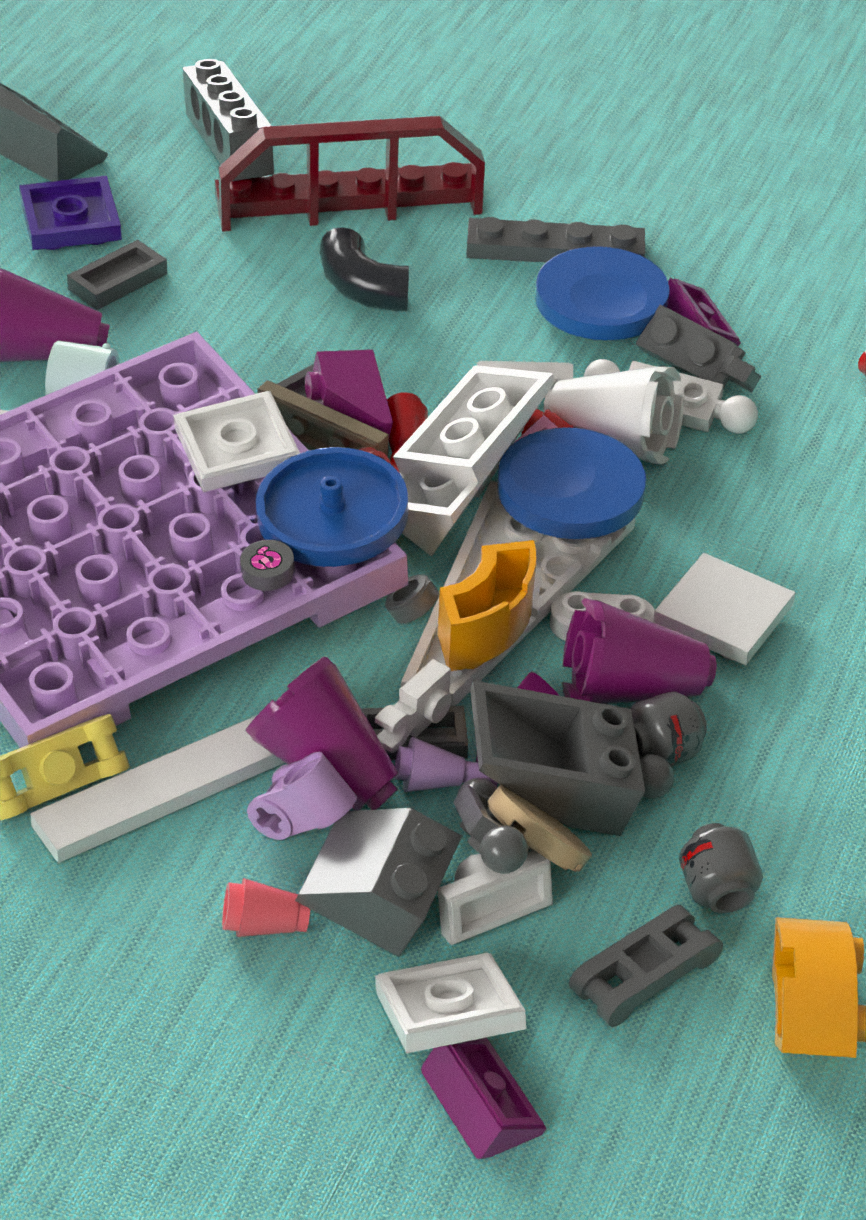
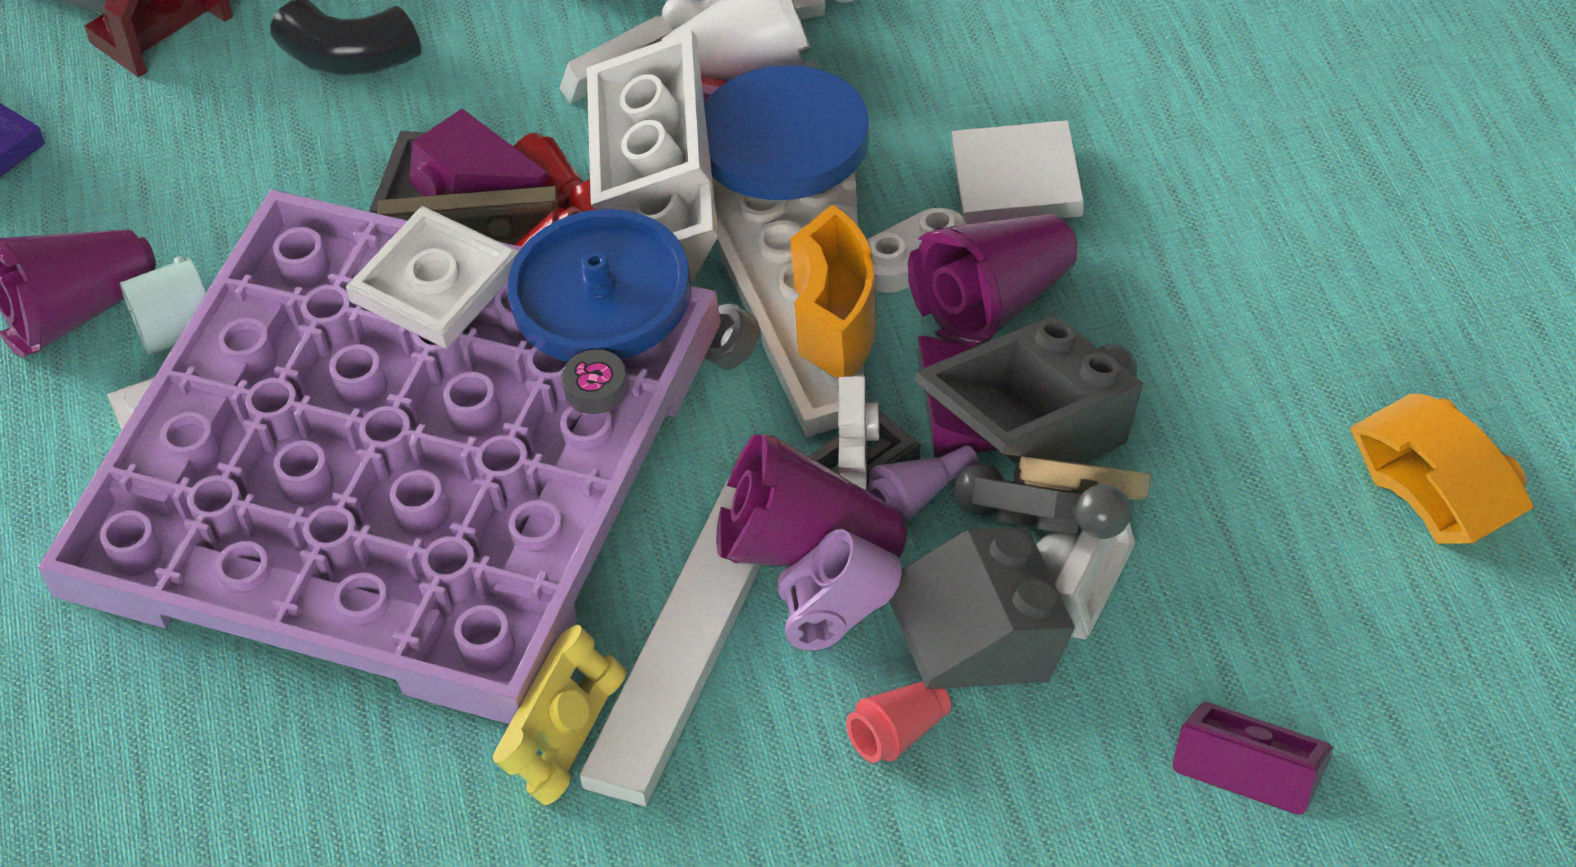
camera: 30 degrees left, 5 degrees up
(117, 274) = (79, 183): dark grey tile -> none
(449, 1002) = (1153, 690): white tile -> none
(644, 963) = (1275, 542): dark grey plate -> none
(669, 727) = (1091, 307): dark grey head -> none
(721, 868) = (1257, 413): dark grey head -> none

